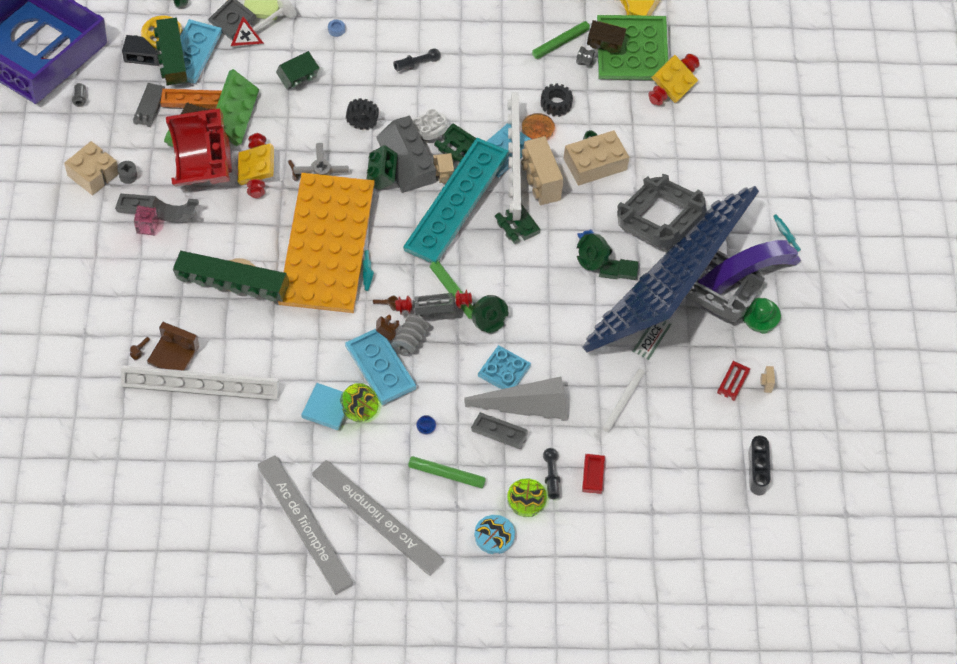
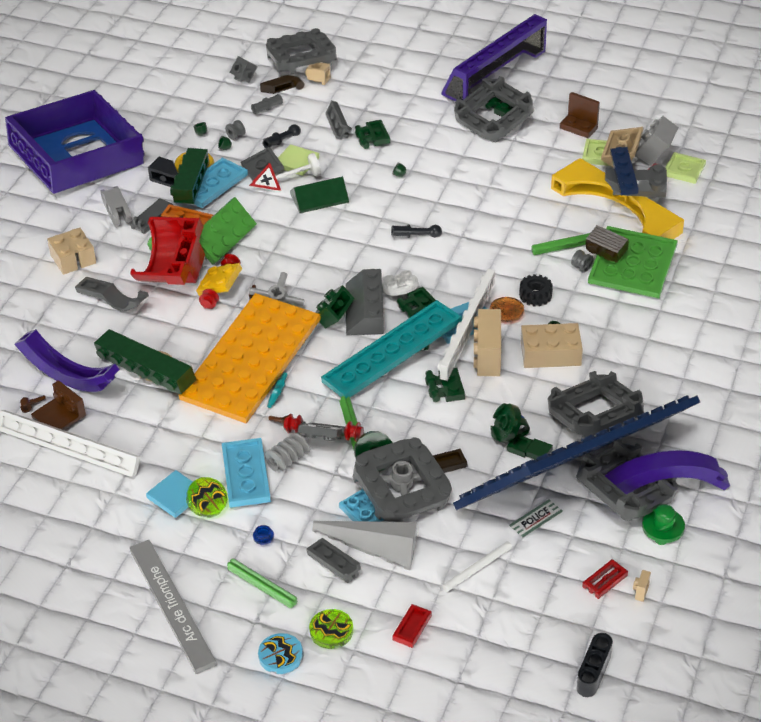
camera: 25 degrees right, 15 degrees down
(79, 95) = (93, 197): dark grey pin -> none
(108, 103) = (116, 205): none -> light grey piece
(127, 172) = (101, 261): dark grey wheel -> none
(146, 220) = (95, 301): clear pink brick -> none
(157, 305) = (60, 368): none -> dark purple arch
(298, 70) = (297, 214): dark green brick -> none
(305, 525) = (98, 594): light grey tile -> none
(308, 37) = (320, 195): none -> dark green slope
(336, 28) = (354, 192): medium blue tile -> none
(362, 114) = (333, 265): black tyre -> none
(387, 328) = (266, 439): reddish brown tile -> none
(444, 166) = (394, 317): tan brick -> none
(523, 332) = (402, 477): none -> light grey bar
(527, 366) = (410, 504): none -> dark grey plate
(550, 456) = (365, 617): black pin -> none
(551, 304) = (451, 460): none -> dark brown tile
(674, 79) = (664, 297): yellow plate -> none
(784, 230) = (724, 456): teal hand -> none

